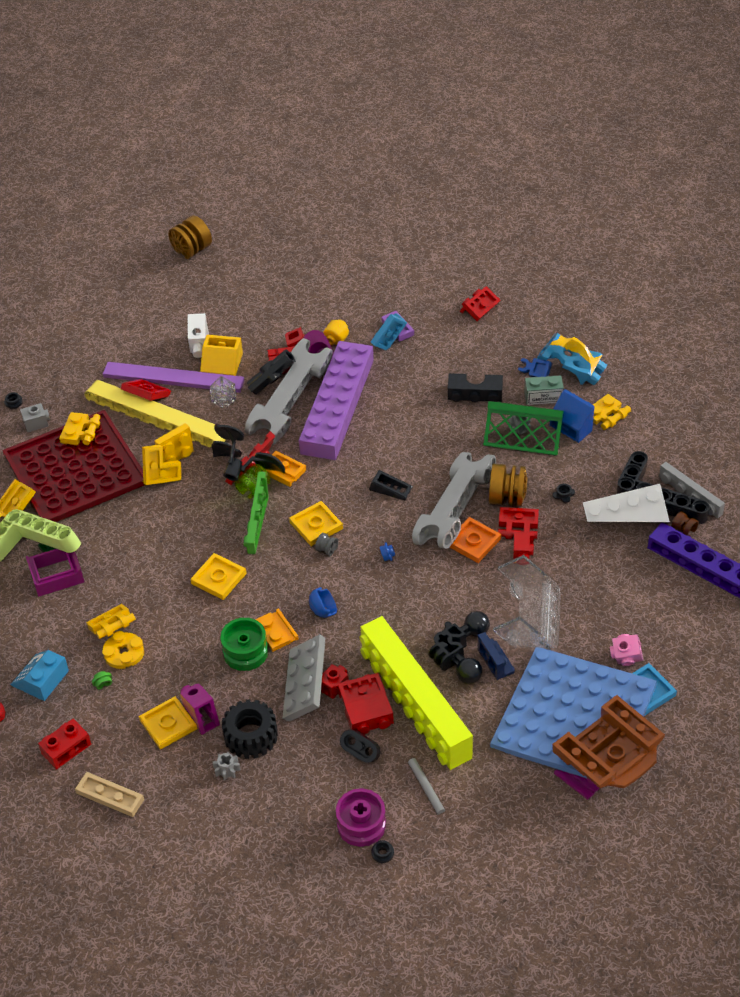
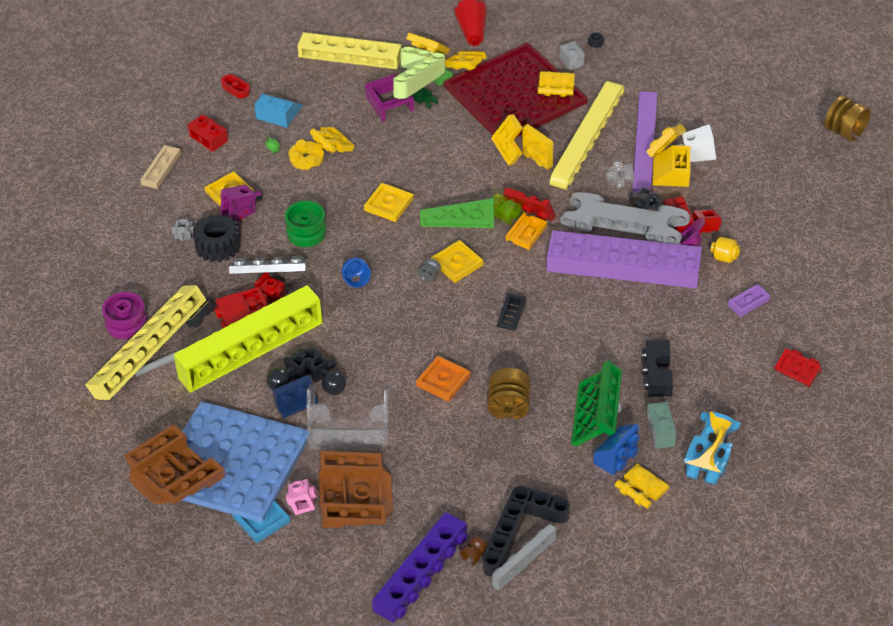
camera: 85 degrees right, 0 degrees up
(145, 389) = (616, 120): red plate -> none
(193, 351) = (669, 135): none -> yellow plate
(234, 465) = (505, 185): black plant -> none
(278, 630) = (330, 248): light orange plate -> none
(382, 845) = (92, 336): black plate -> none
(387, 552) = (422, 310): blue plate -> none
(389, 331) = (725, 286): dark azure bracket -> none
(444, 519) = (460, 347): light grey piece -> none
(471, 831) = (145, 342): none -> light yellow brick
(517, 518) = (474, 413): red plate -> none
(523, 544) = (432, 414): red brick -> none
(537, 368) = (694, 422): blue plate -> none
(564, 492) = (515, 445): black plate -> none
(621, 610) = (353, 489): none -> dark orange slope
(632, 506) = (483, 495): white wedge -> none

